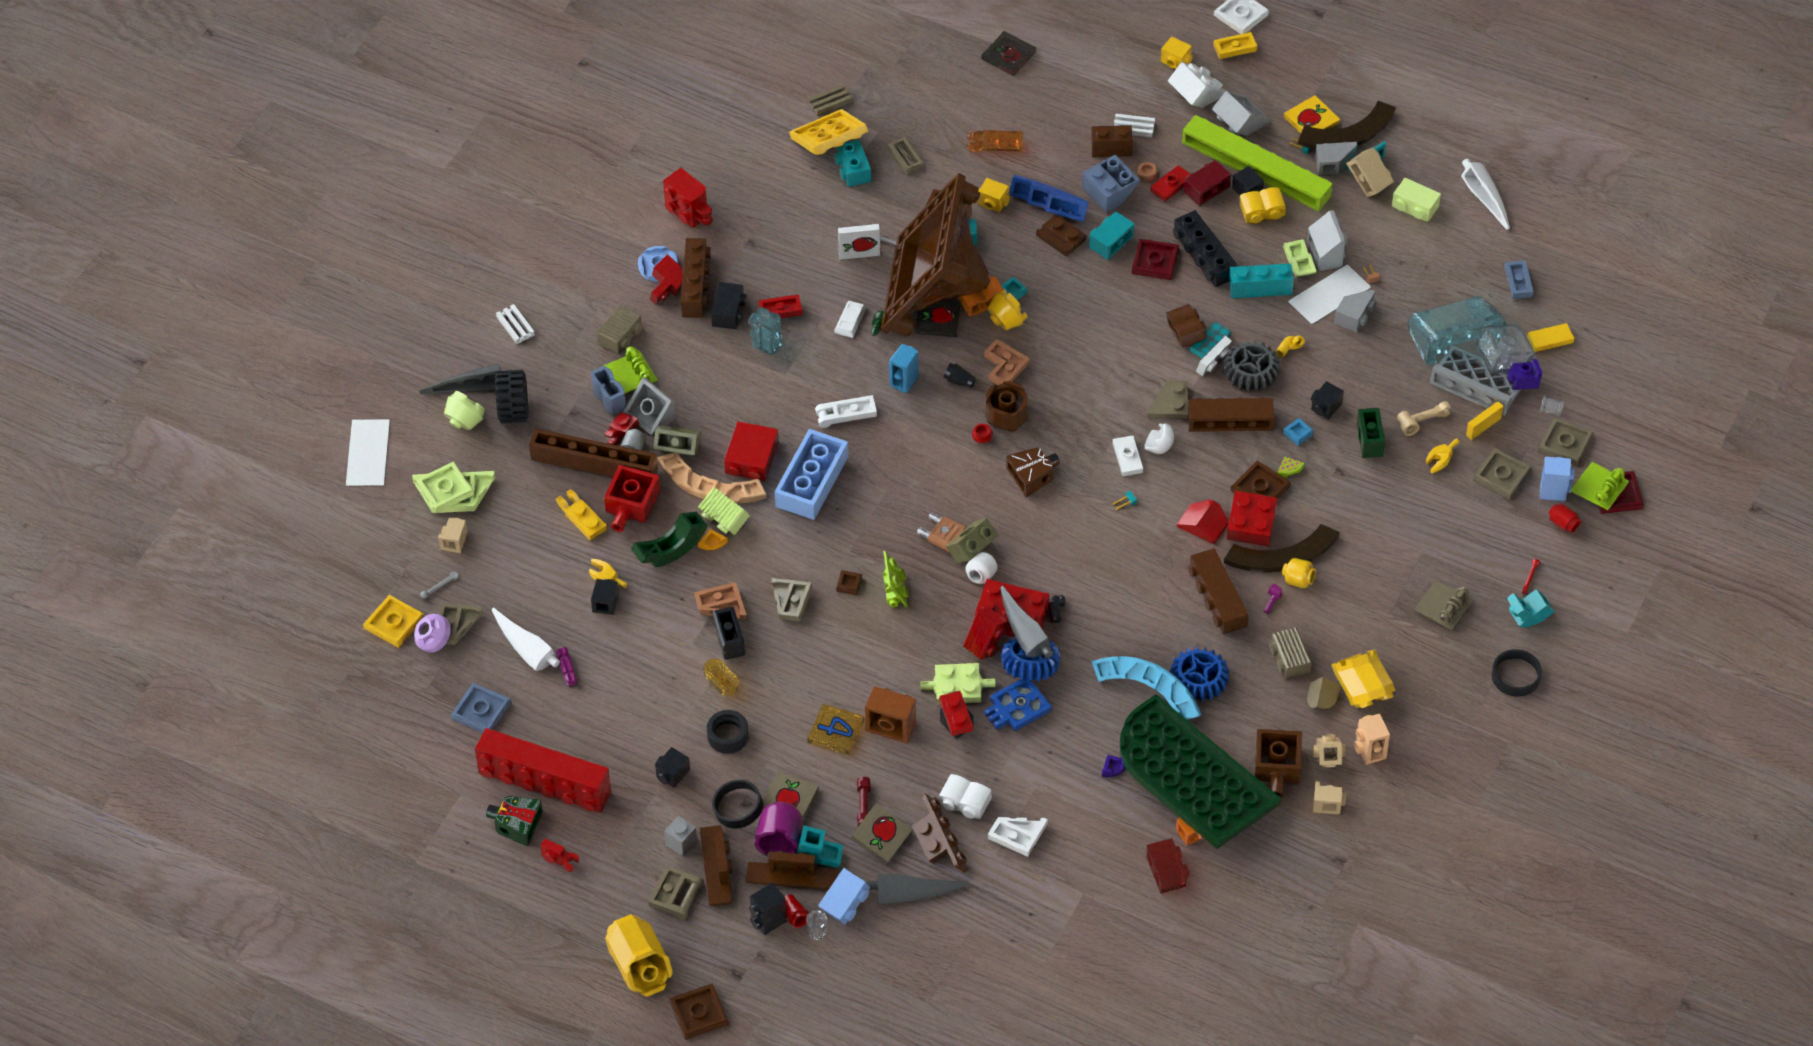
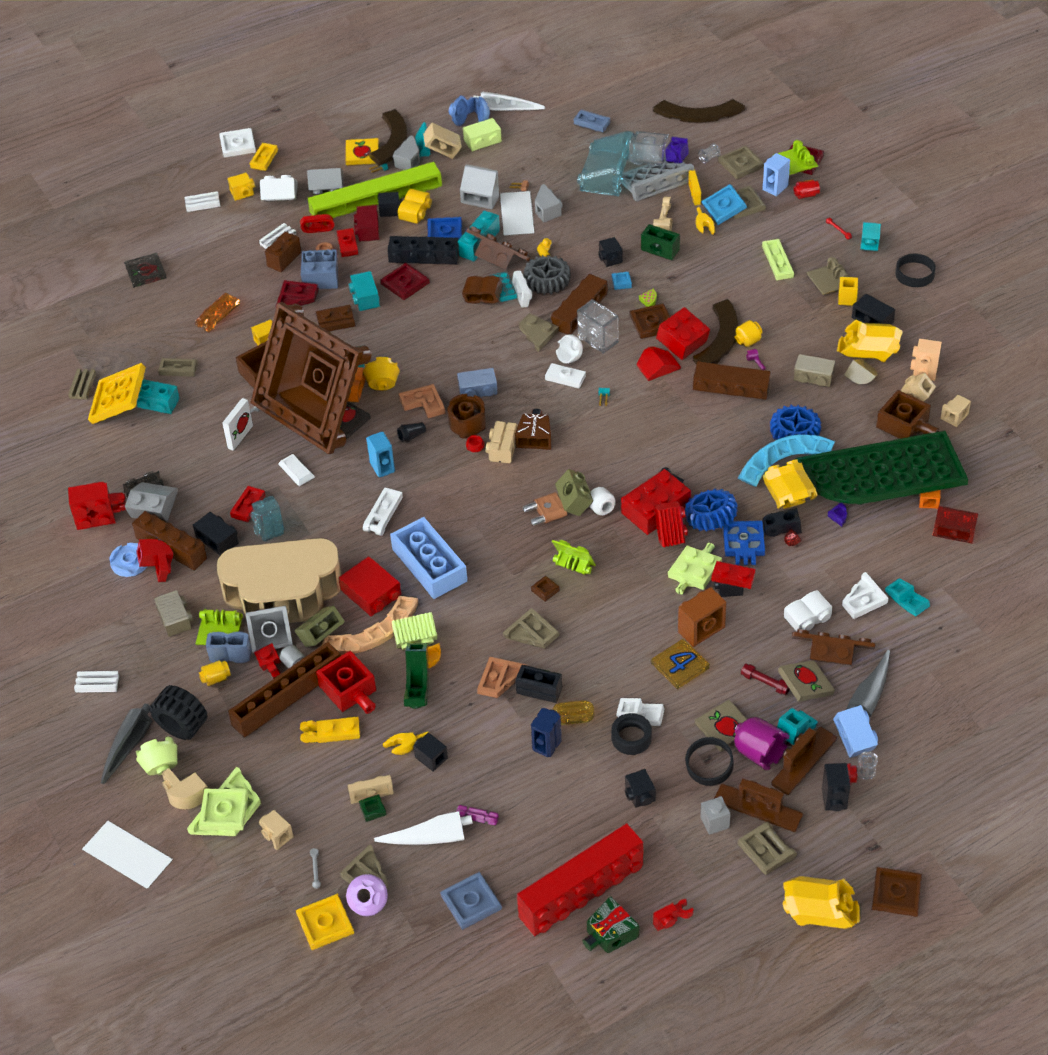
camera: 55 degrees left, 5 degrees down
(447, 450) = (184, 793): none -> tan brick
(524, 590) = (372, 808): none -> dark green tile
(537, 576) = (364, 789): none -> tan plate
(579, 397) = (214, 672): none -> yellow brick
(678, 665) = (546, 732): none -> dark blue brick
(705, 380) = (280, 575): none -> tan brick
(728, 236) = (152, 499): none -> light grey slope
(737, 215) = (150, 477): none -> clear smoke hinge
(759, 727) = (651, 712): none -> white slope
(876, 322) = (317, 454): dark green bar -> none
(992, 454) = (502, 442): none -> tan brick
(1026, 630) = (697, 491): piece -> none
(1046, 869) = (905, 596): none -> teal slope
(1048, 197) = (309, 302): blue slope -> none
(1051, 741) = (791, 538): none -> clear red hinge
(1058, 392) = (478, 382): none -> sand blue brick
(1063, 725) = (782, 522): none -> black leg
(1067, 181) = (297, 293): none -> dark red wing
(1108, 703) = (789, 484): none -> yellow brick
(1137, 36) = (202, 201): none -> white tile
(1174, 144) = (317, 223): none -> red plate
(1201, 443) = (597, 326): none -> clear brick
(1245, 303) = (495, 251): none -> reddish brown bracket
(1252, 249) = (445, 227): none -> blue tile
(1299, 258) = (471, 211): yellowish green slope -> none
(1415, 665) = (872, 311): none -> black brick
(1426, 626) = (847, 291): none -> yellow brick
(1434, 159) = (463, 107): none -> medium blue animal
(1437, 546) = (777, 259): none -> yellowish green tile
(1479, 458) = (724, 204): none -> dark azure tile
(1550, 337) = (652, 125): yellow tile -> none
(1613, 368) = (699, 115): none -> dark brown tile

